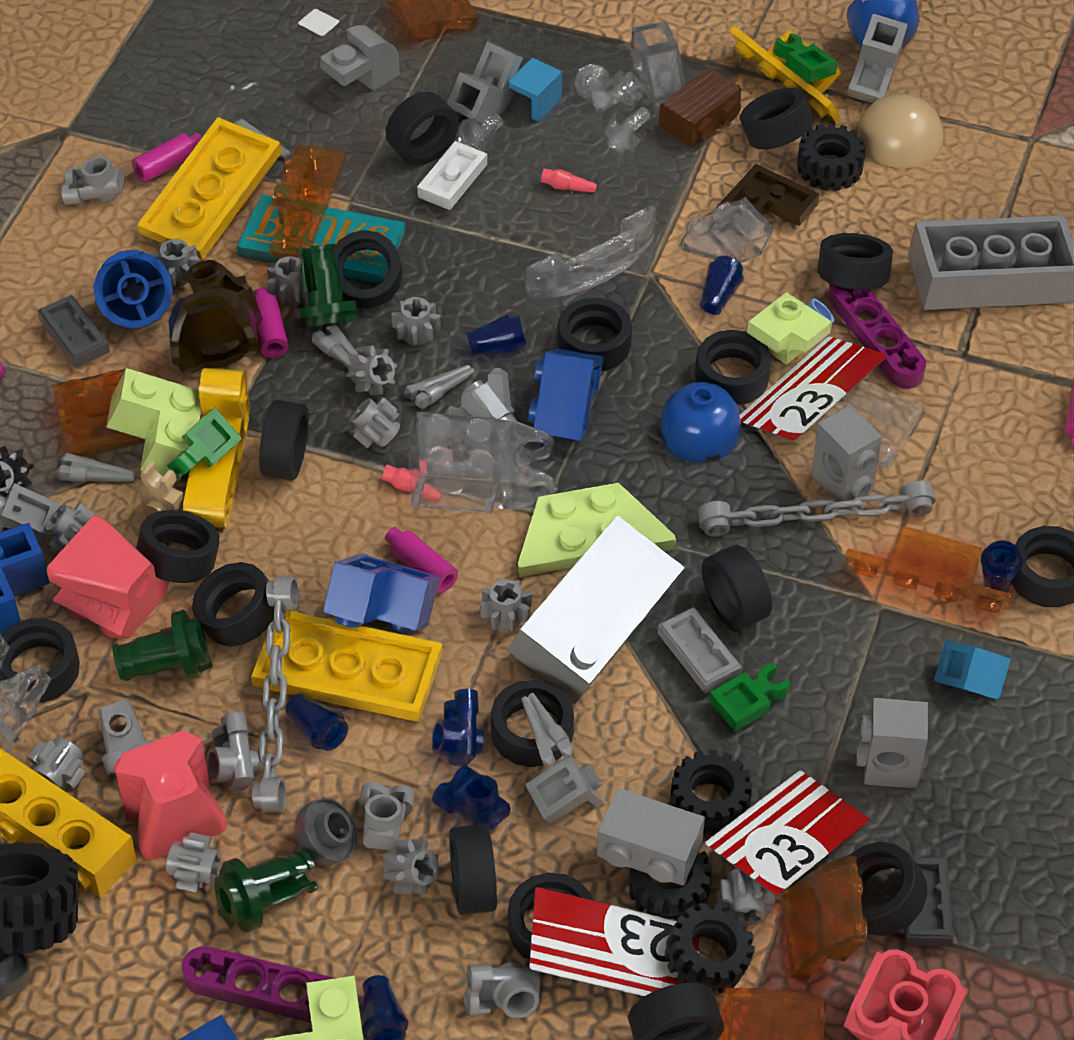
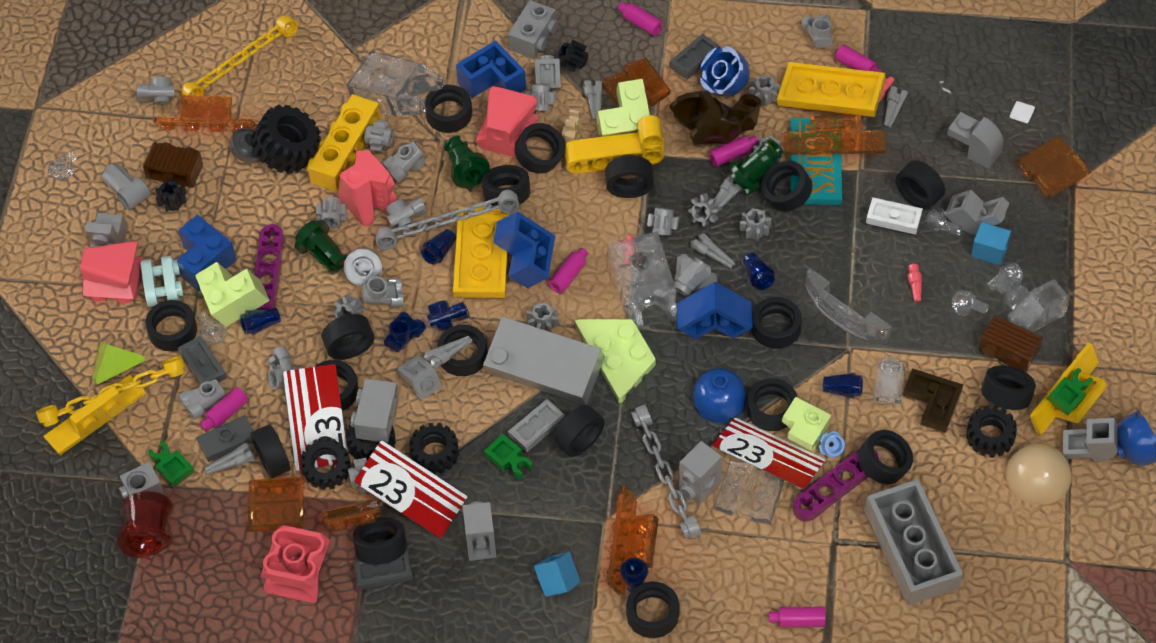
camera: 80 degrees right, 5 degrees up
(207, 442) = (608, 135): plate -> none

